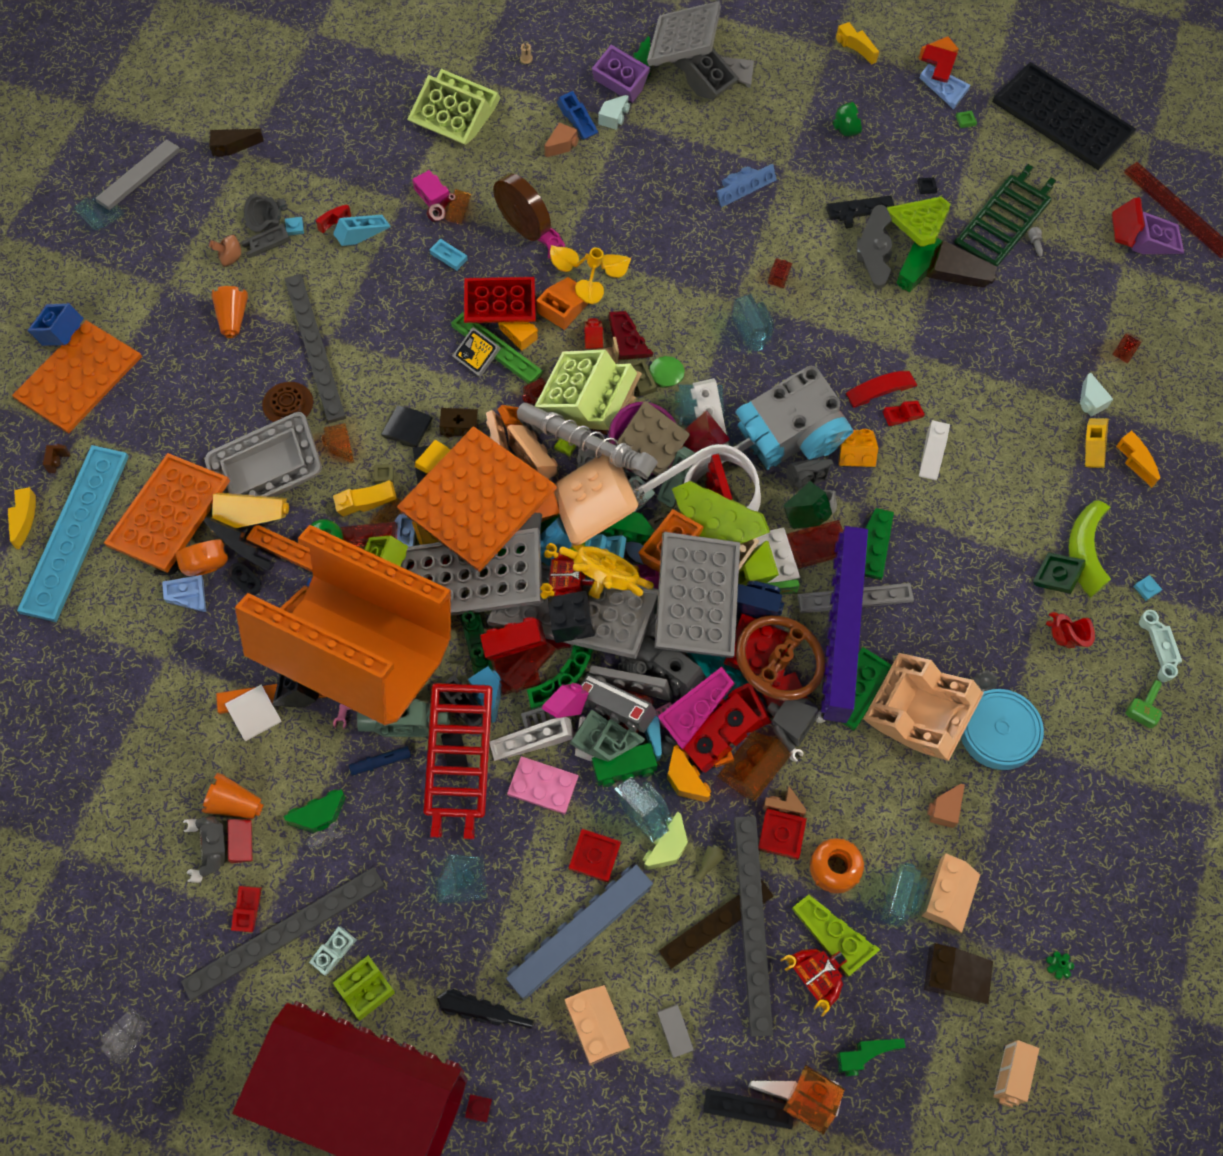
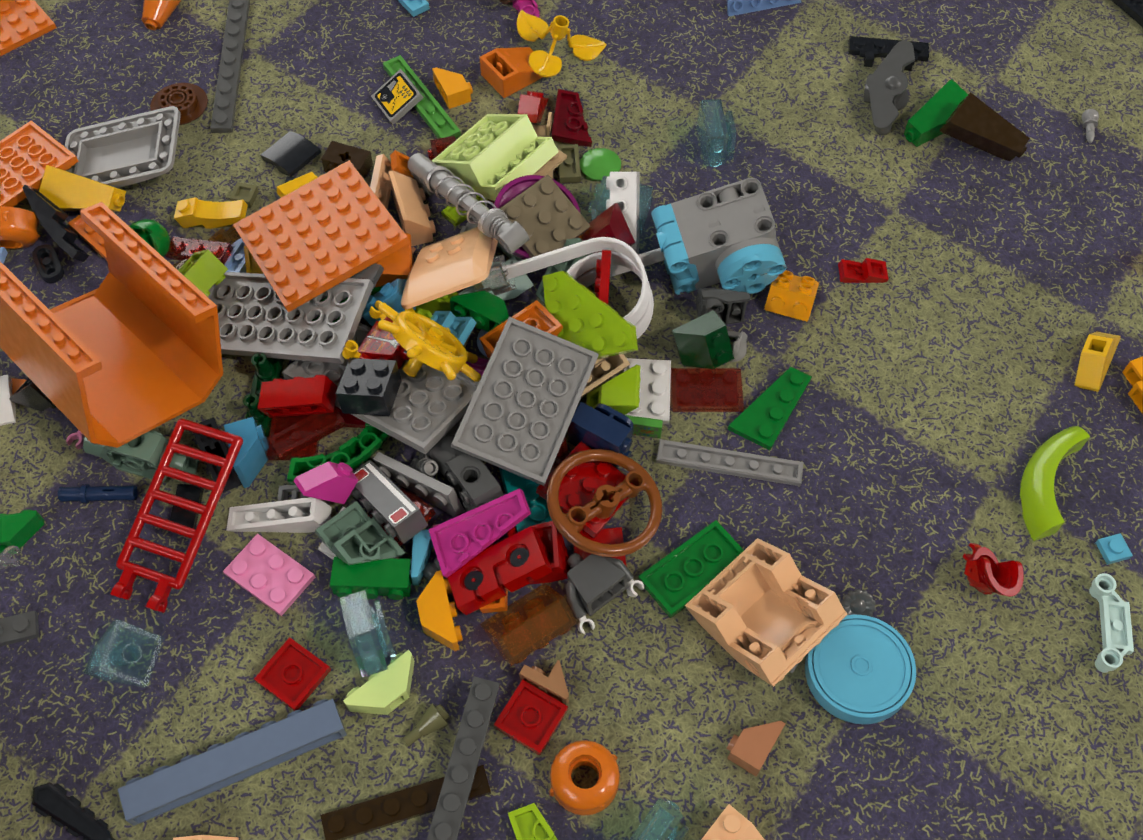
camera: 20 degrees right, 5 degrees down
(338, 442) = (211, 150): clear orange slope -> none
(499, 300) = (442, 49): red slope -> none
(780, 273) = (768, 92): clear red brick -> none
(845, 625) = (696, 487): dark purple brick -> none
(880, 386) = (845, 235): red slope -> none
(921, 219) = (952, 71): lime plate -> none
(927, 185) = (975, 42): black tile -> none
(934, 450) = (885, 319): white slope -> none
(1020, 231) = (1072, 111): dark green bar -> none
(1059, 573) = (999, 499): dark green tile -> none
(1094, 396) = (1110, 308): light aqua slope -> none
(1144, 711) = (1062, 701): bright green piece -> none

